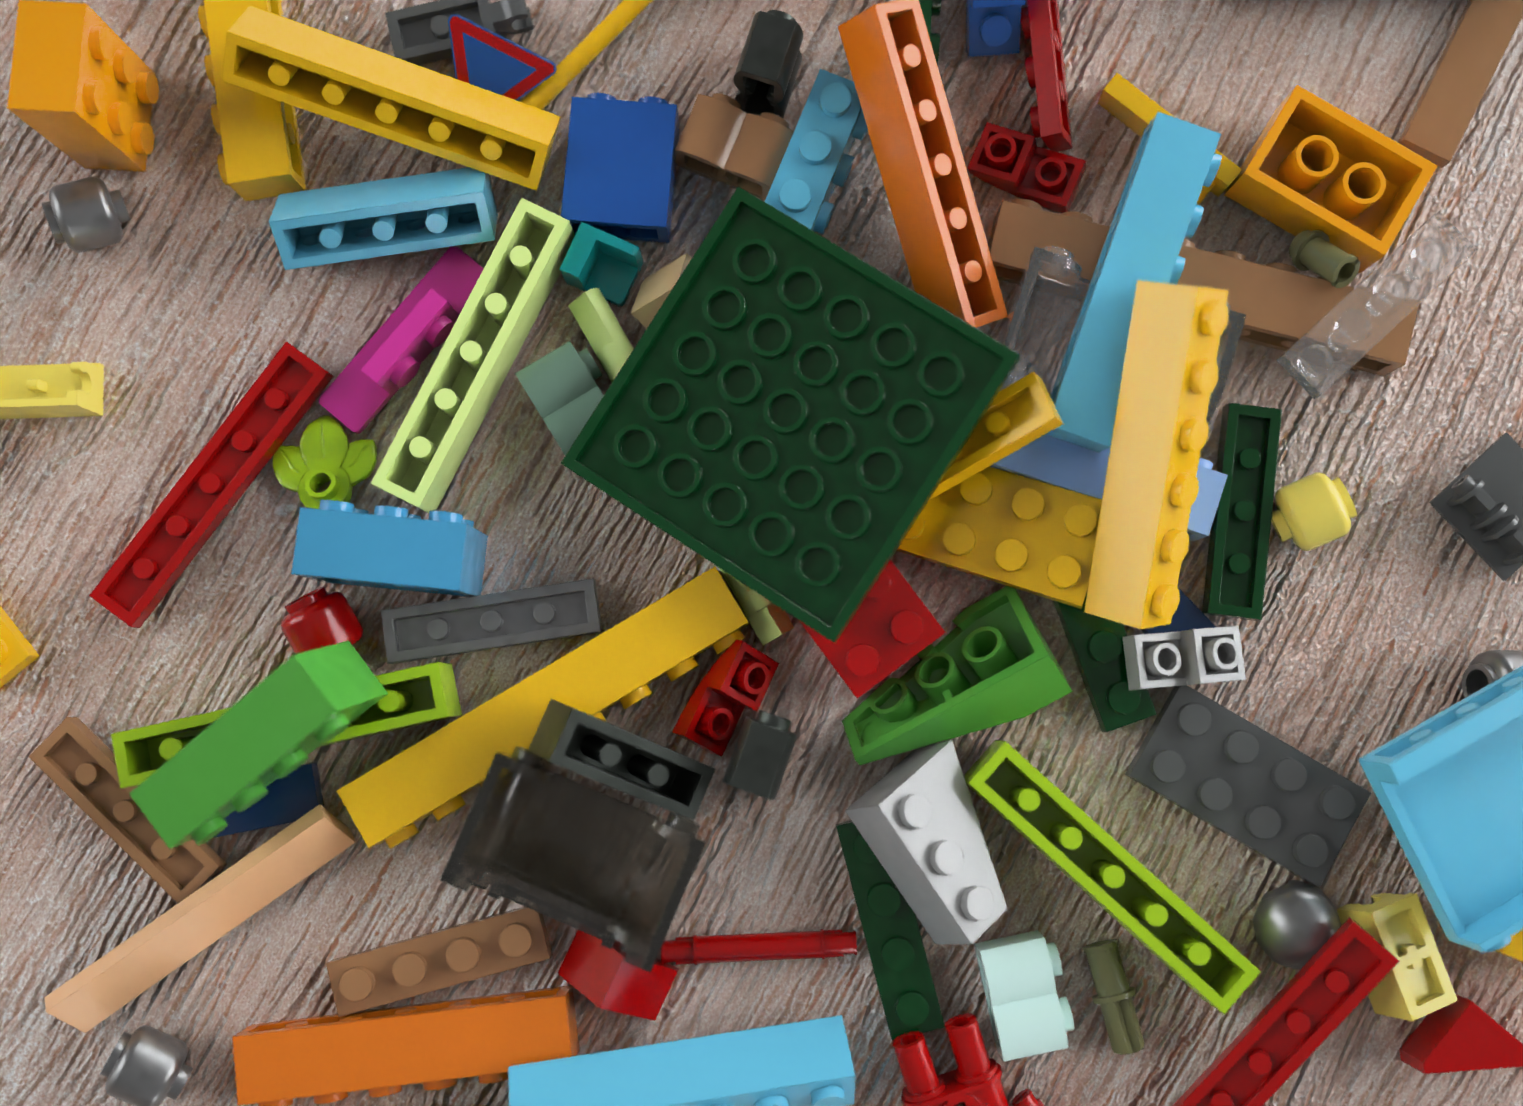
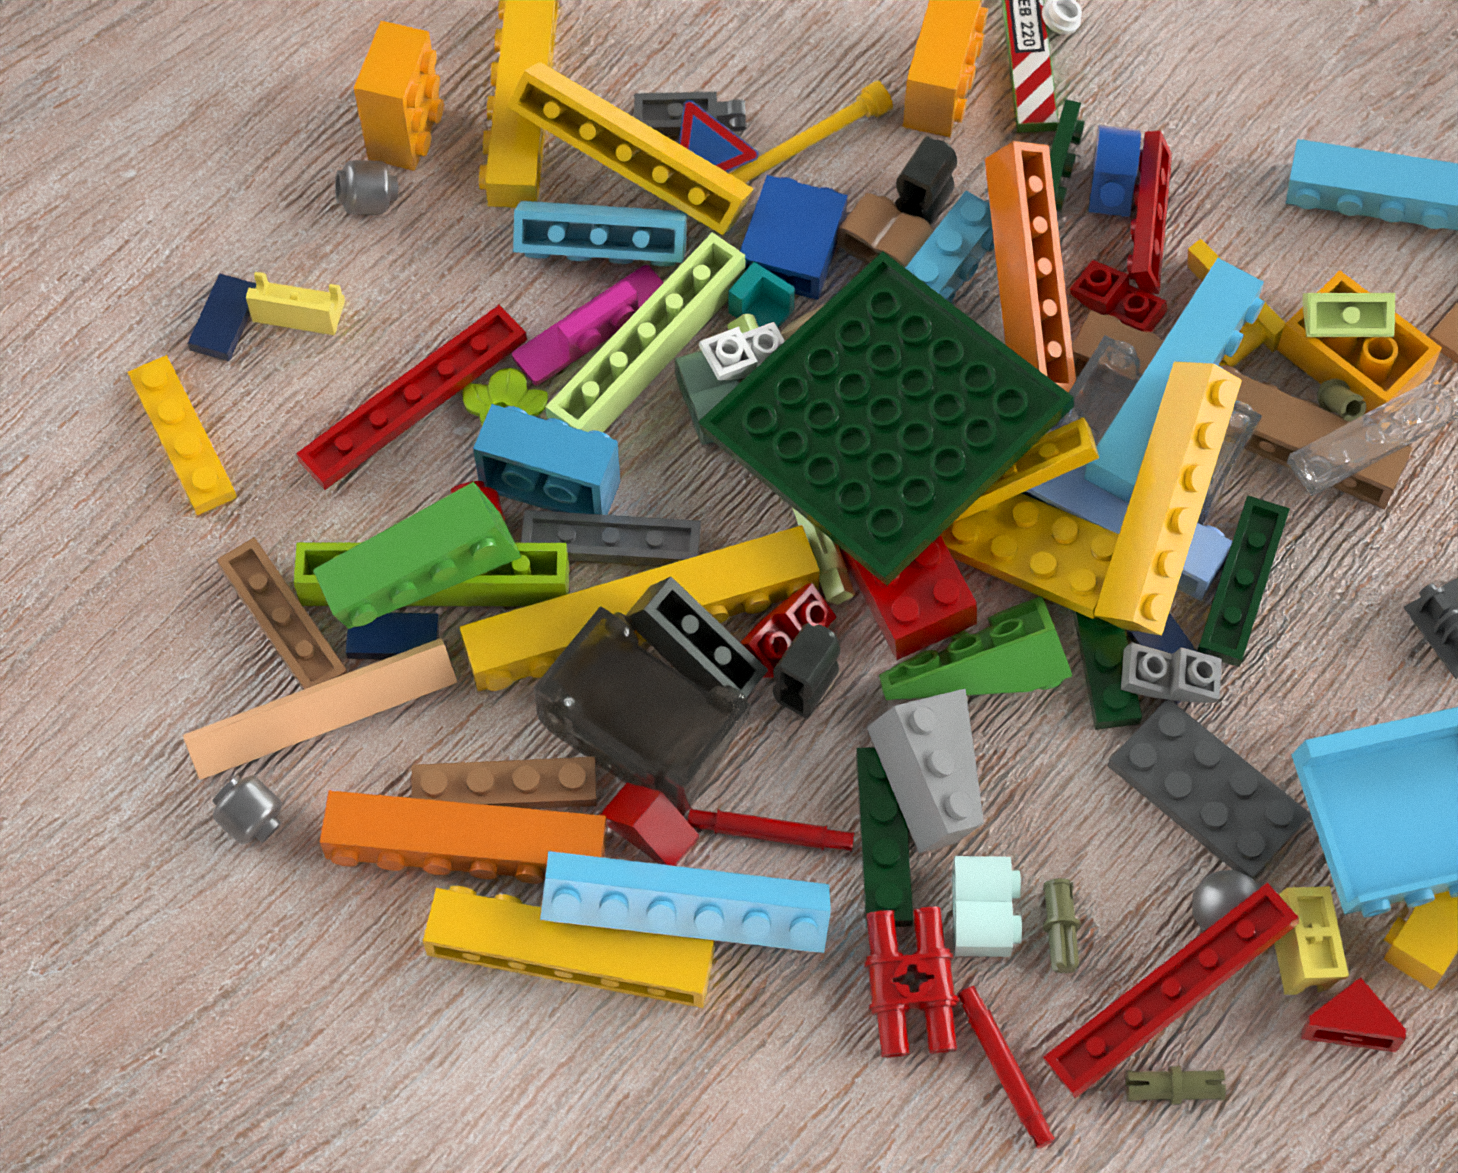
camera: 10 degrees right, 20 degrees down
(594, 352) = (737, 354): none -> white slope
(1111, 876) = (1074, 821): lime brick -> none
(1313, 511) = (1301, 589): light yellow head -> none
(1321, 145) = (1349, 314): none -> yellowish green slope

